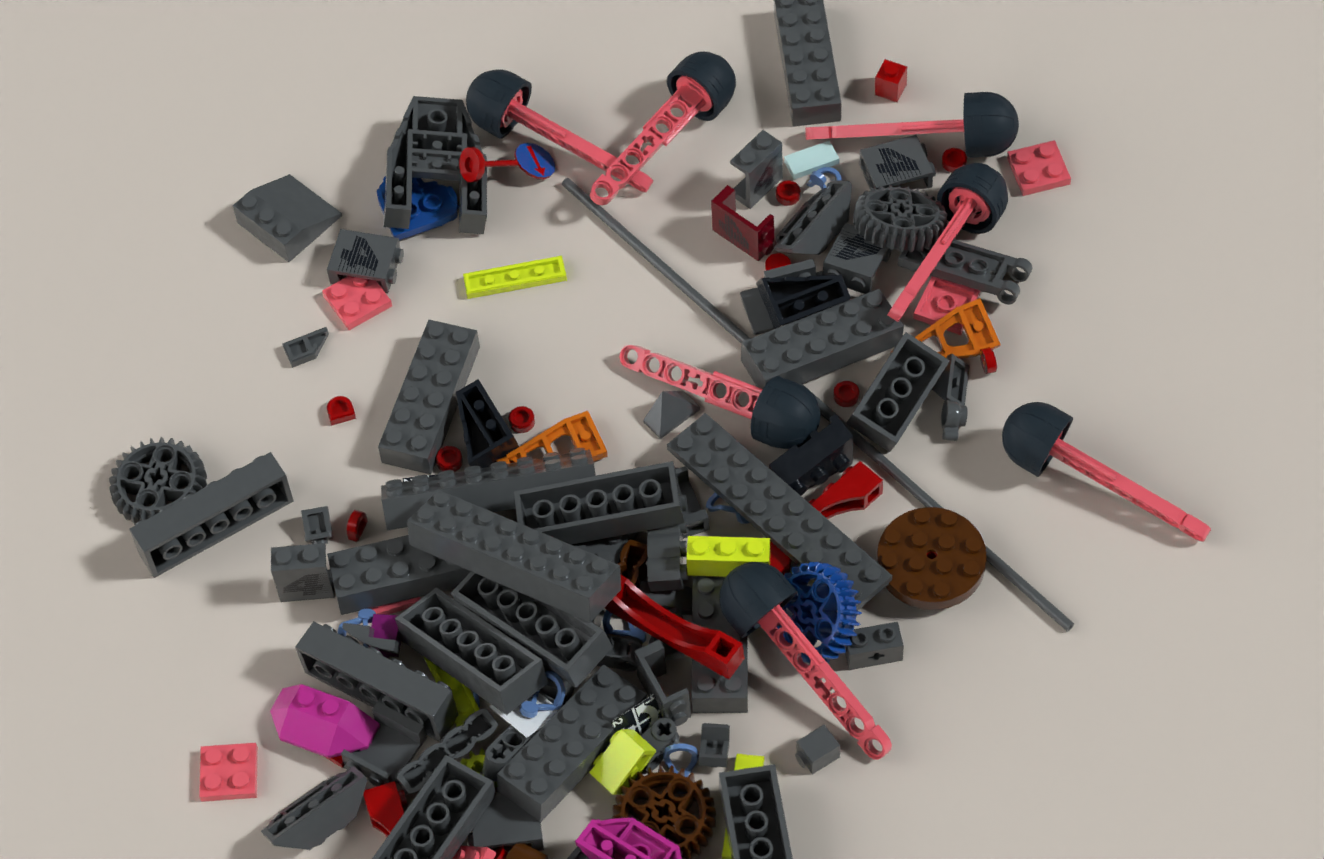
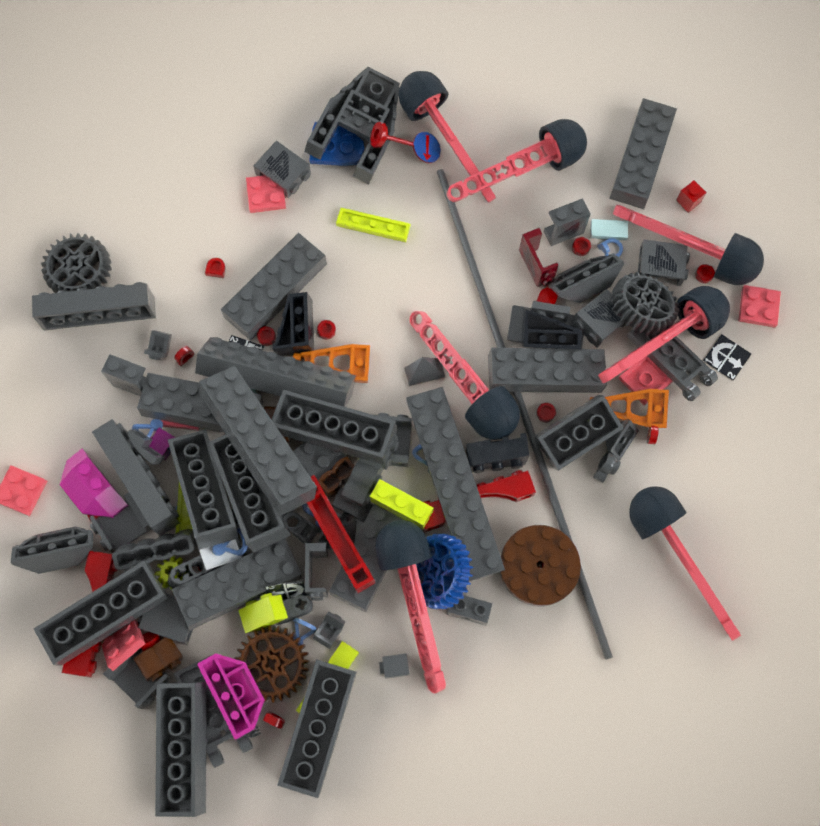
camera: 20 degrees right, 15 degrees up
(285, 215) = (250, 112): dark grey slope -> none
(305, 347) = (216, 212): dark grey tile -> none
(1031, 240) = (727, 357): none -> black sticker

